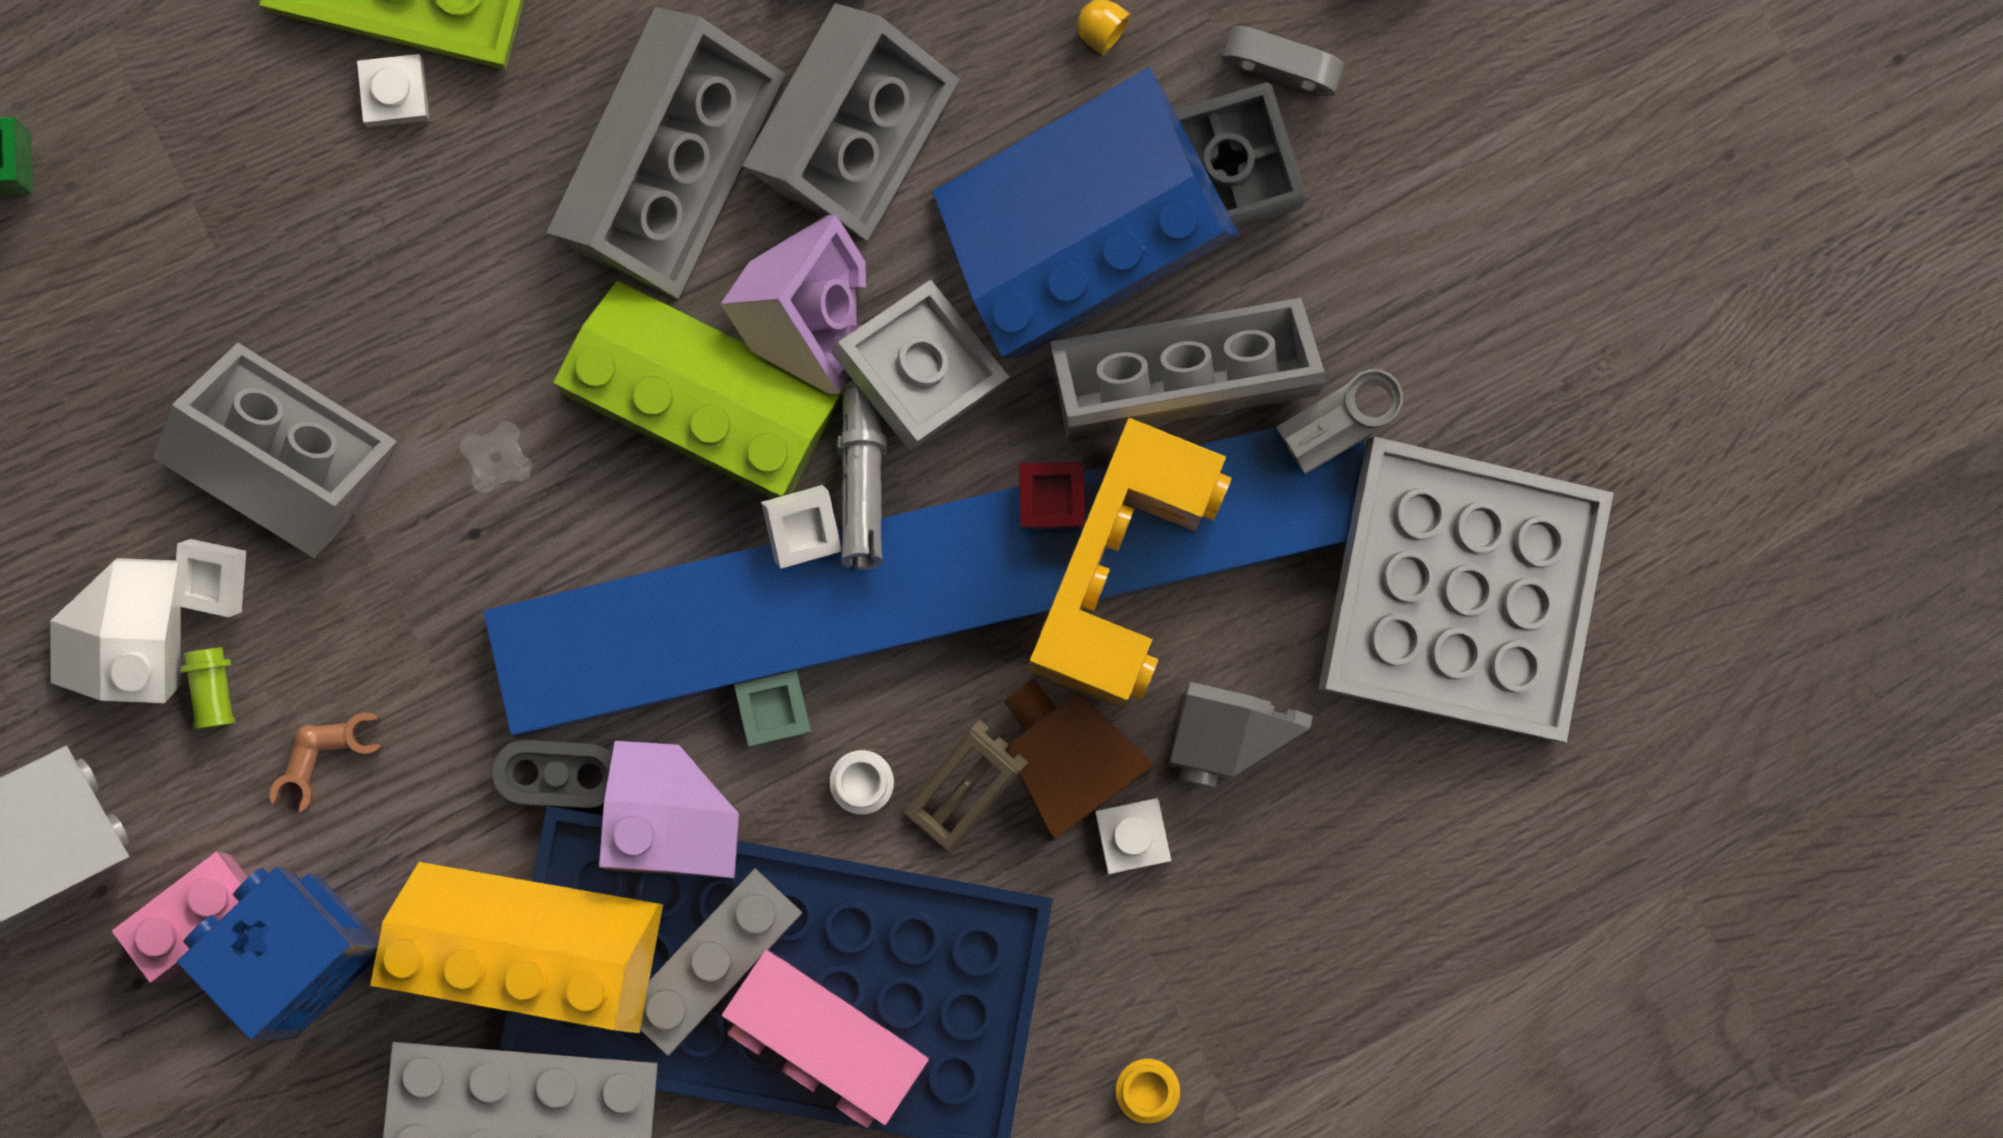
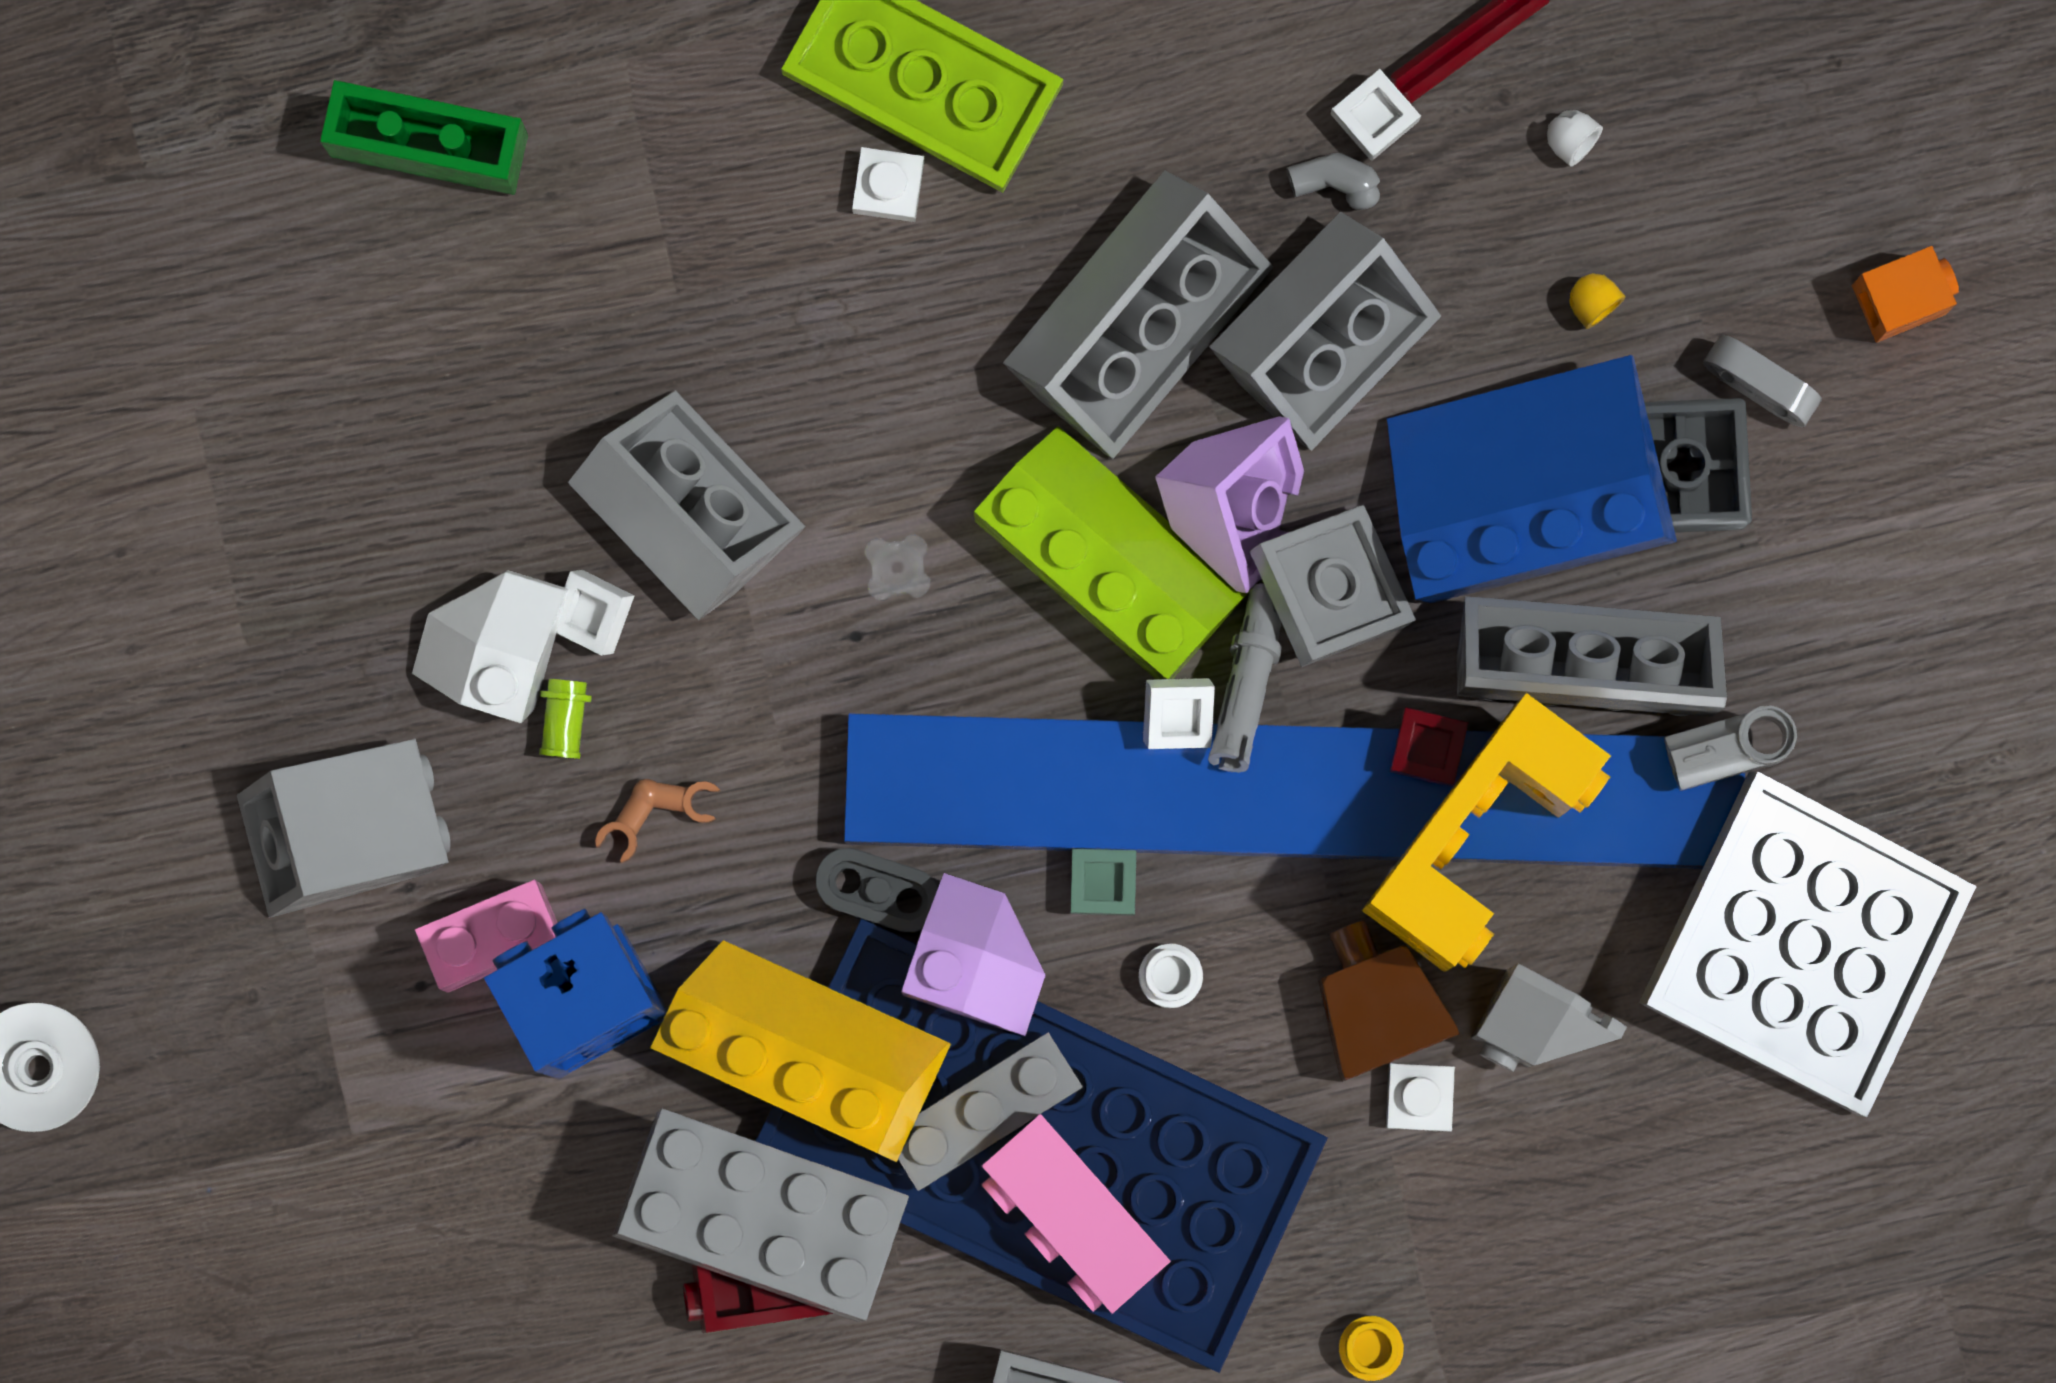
camera: 15 degrees right, 0 degrees up
(993, 754) = (1307, 981): dark tan tile -> none

